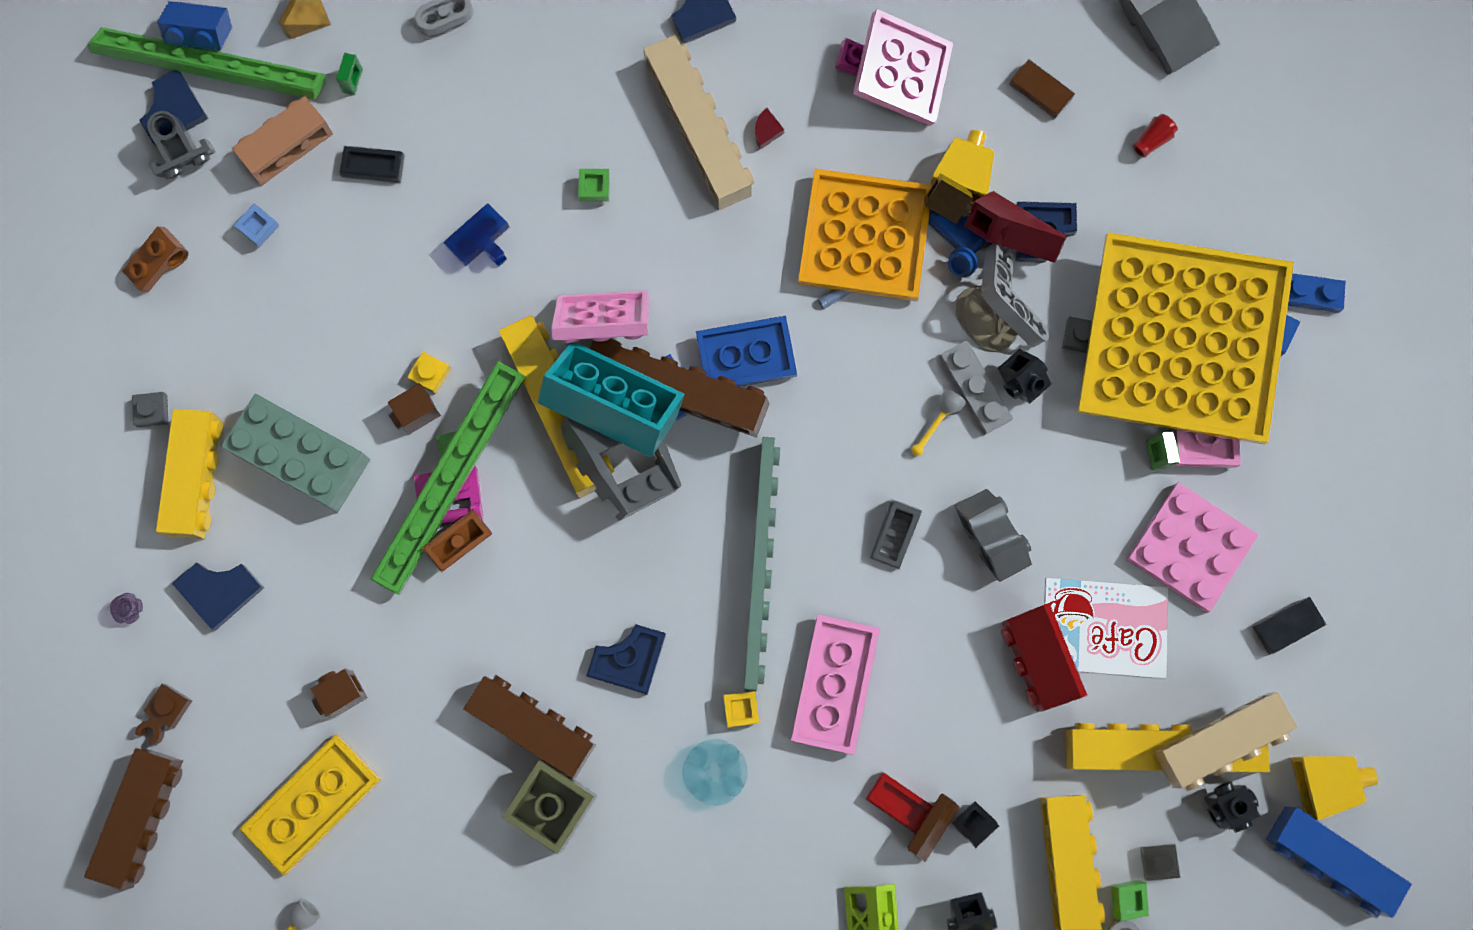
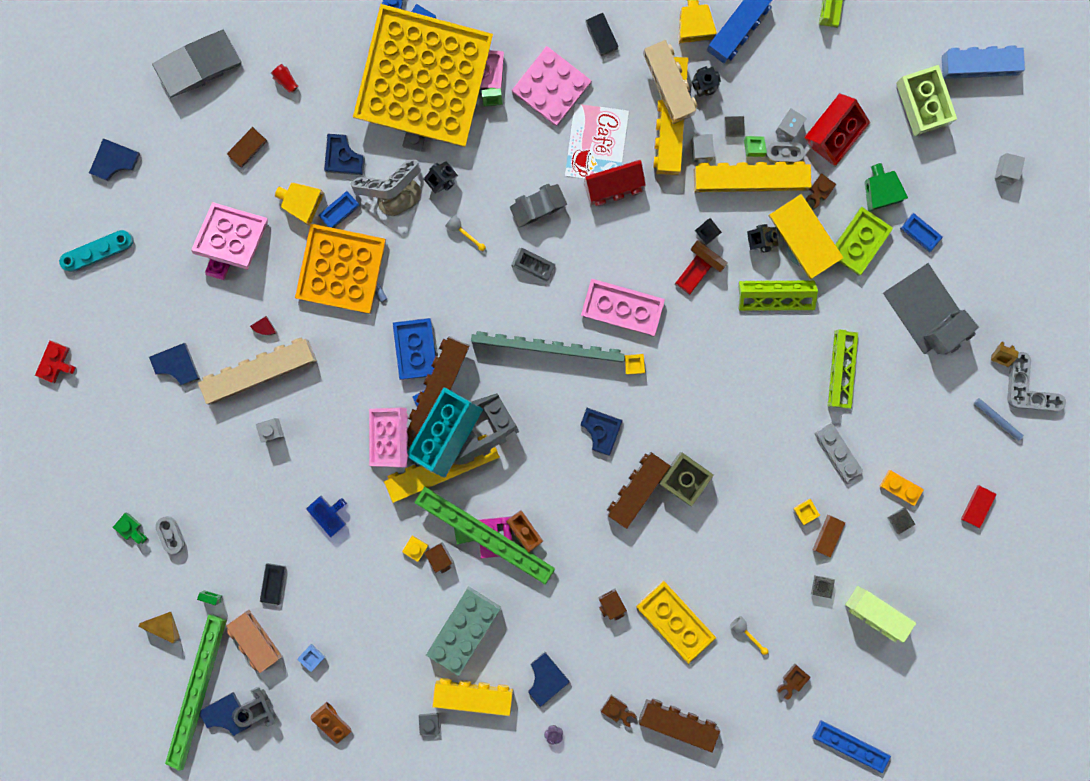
camera: 85 degrees left, 10 degrees up
(194, 25) = (170, 699): blue brick -> none
(594, 184) = (296, 440): bright green plate -> none
(607, 143) = (269, 430): none -> light grey brick
(703, 786) = (677, 373): clear light blue plate -> none
(949, 199) = (323, 214): dark brown brick -> none
(962, 262) = (363, 209): blue plate -> none
(975, 387) = (444, 207): light grey plate -> none
(1013, 227) = (343, 176): dark red slope -> none
(1117, 807) = (702, 148): none -> light grey brick

